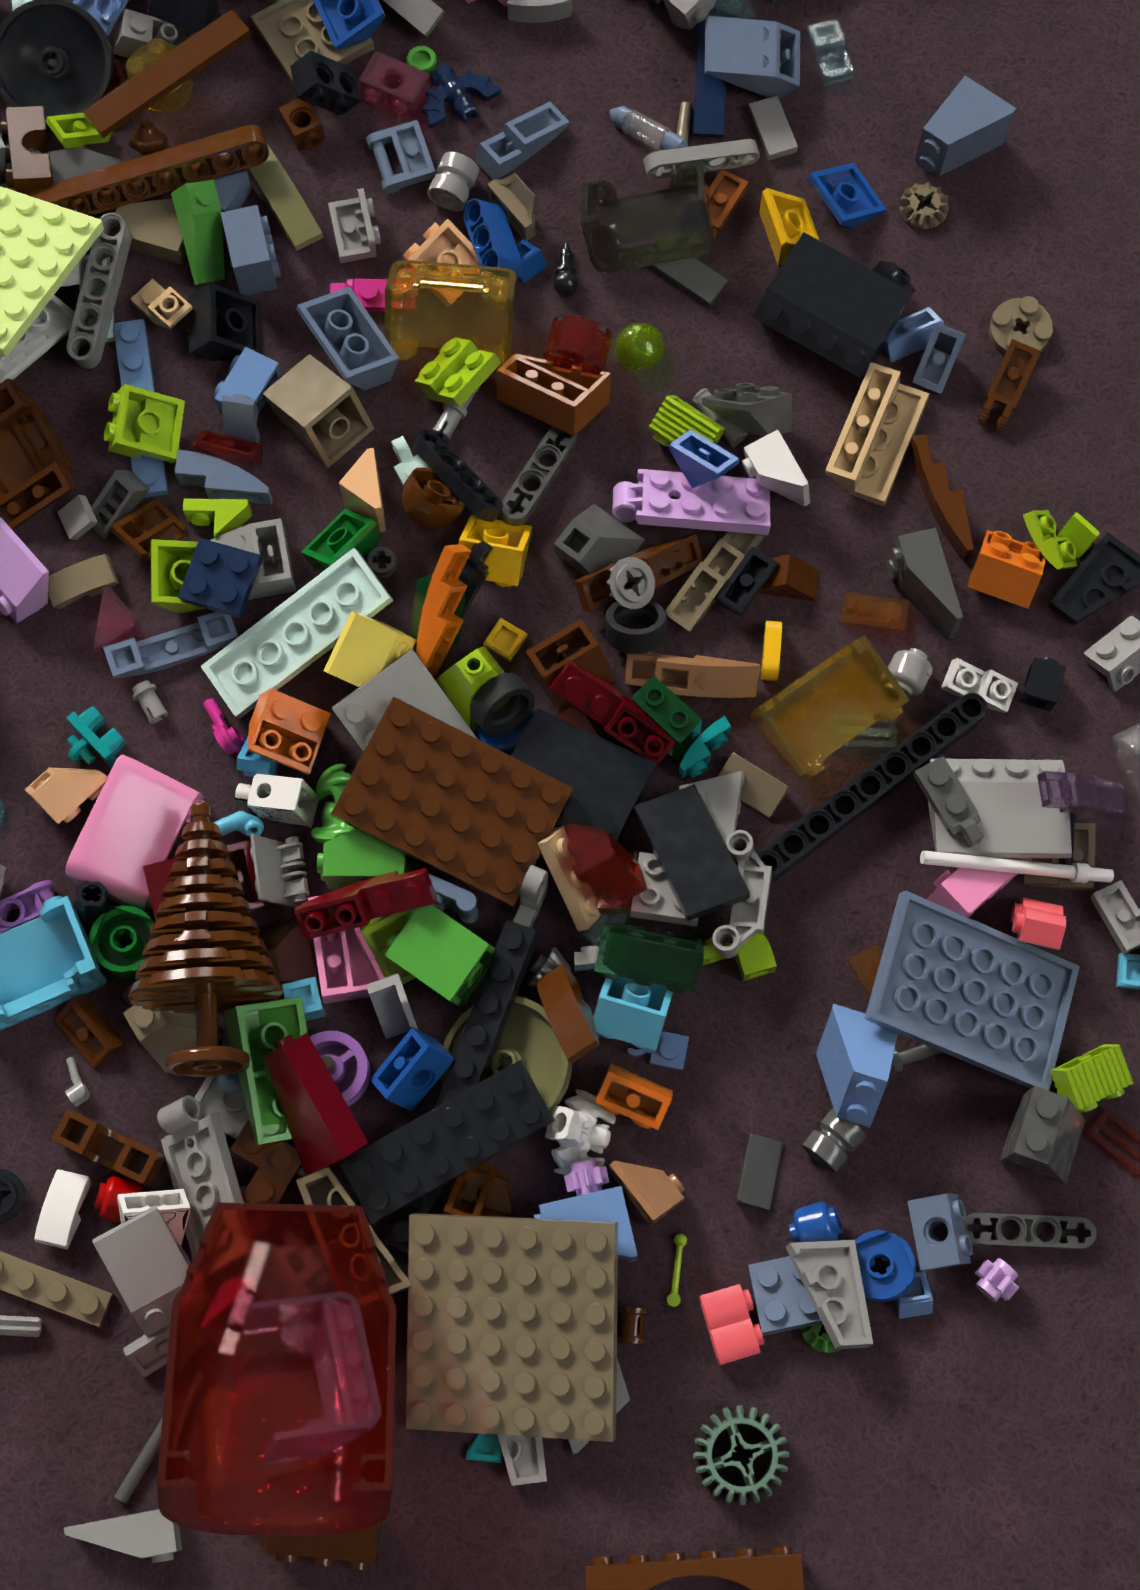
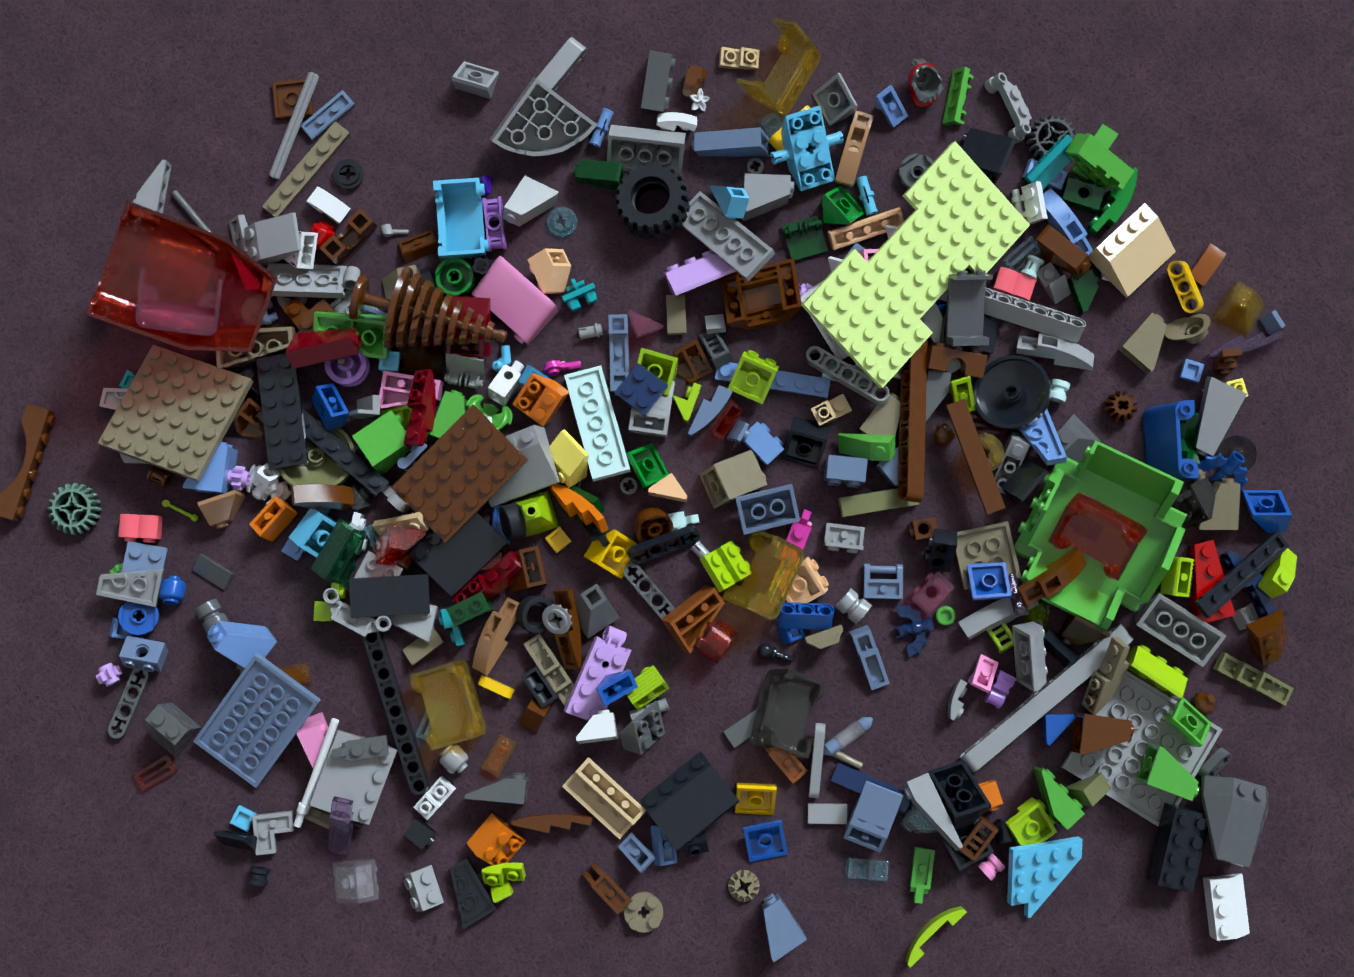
camera: 110 degrees right, 10 degrees up
(639, 346) = (710, 679): clear neon green hair -> none
(1038, 923) = (283, 773): coral brick -> none
(1093, 1077) = (191, 768): lime brick -> none

